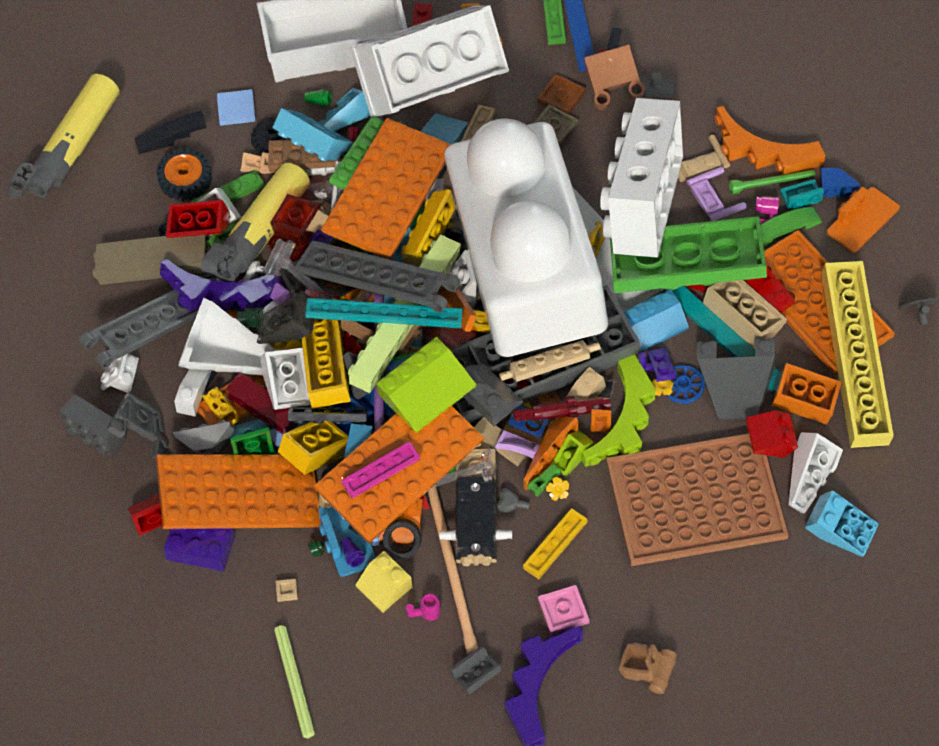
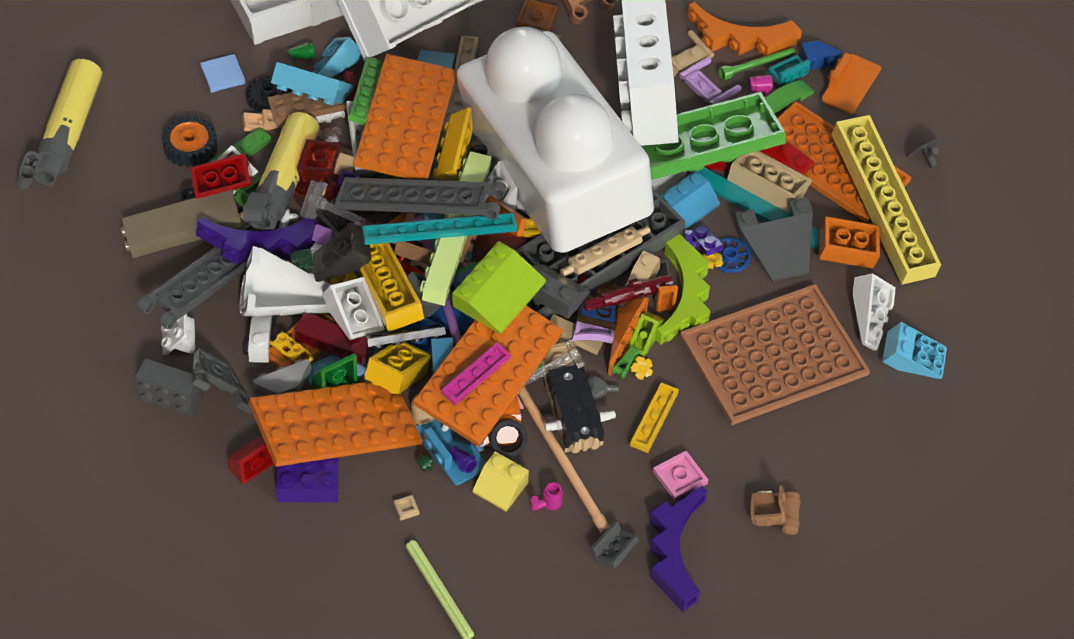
camera: 20 degrees left, 5 degrees down
(170, 131) = (165, 103): black slope -> none
(772, 434) = (829, 283): red slope -> none

